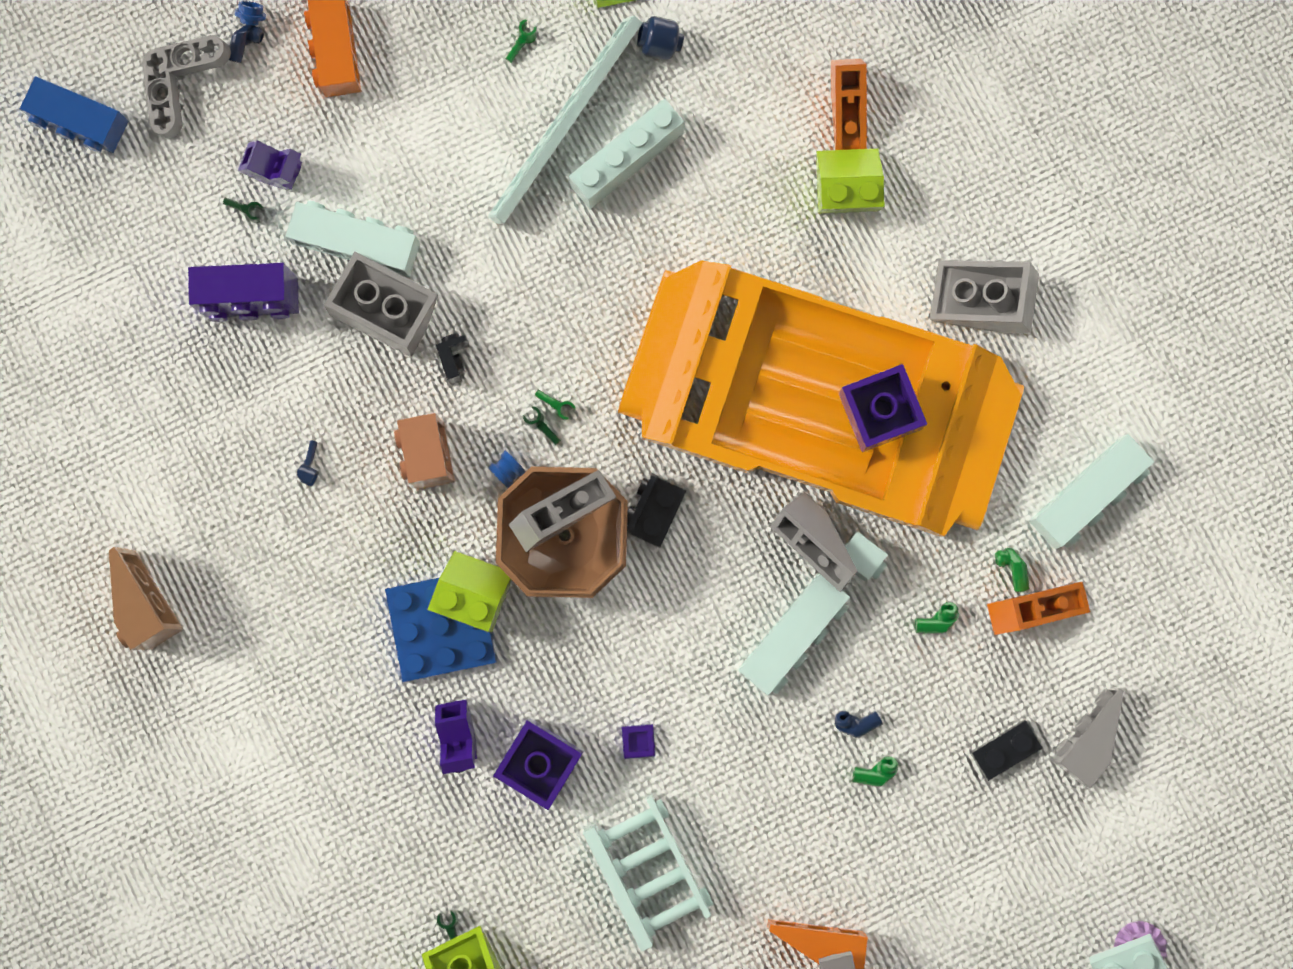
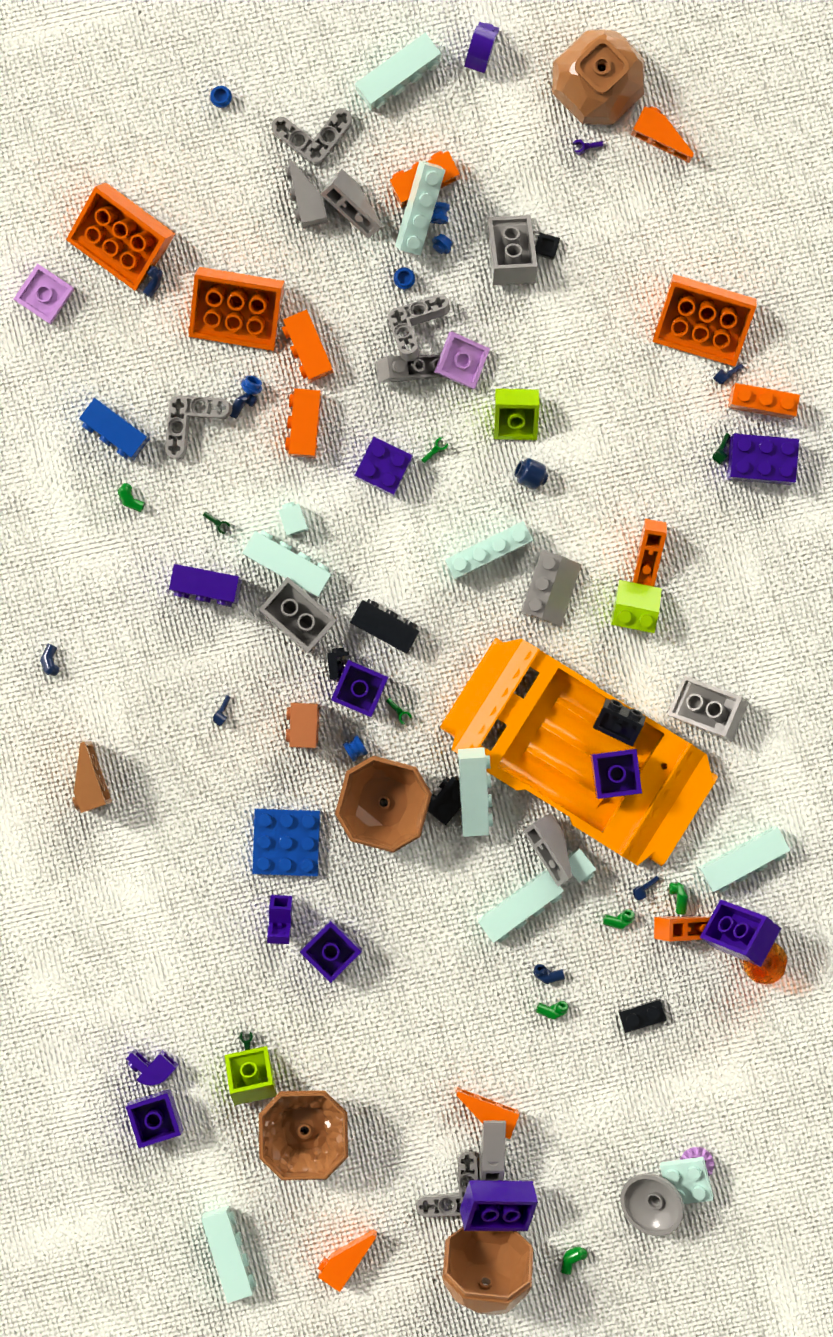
camera: 10 degrees right, 5 degrees up
(49, 454) = (47, 660): none -> dark blue arm
(115, 208) = (127, 498): none -> green arm
(271, 165) = (242, 498): brick -> none
(347, 177) = (293, 519): none -> light aqua brick
(455, 76) = (383, 466): none -> dark purple brick
(470, 591) = (312, 826): lime slope -> none
(492, 383) = (359, 688): none -> dark purple brick
(508, 290) = (385, 625): none -> black brick
(542, 426) = (386, 724): dark green hand -> none
(561, 510) = (387, 792): light grey slope -> none
(564, 120) = (451, 515): light aqua tile -> none
(630, 898) = (370, 1052): light aqua fence -> none
(638, 741) = (400, 950): dark purple tile -> none
(687, 485) = (473, 791): none -> light aqua brick
(725, 184) = (550, 587): none -> light grey slope
(868, 337) = (619, 721): none -> black bracket
(956, 575) = (639, 892): none -> dark blue hand
(1092, 745) = (699, 1026): light grey slope -> none
(1119, 592) = (740, 932): none -> dark purple brick
(1175, 622) = (771, 971): none -> clear orange brick

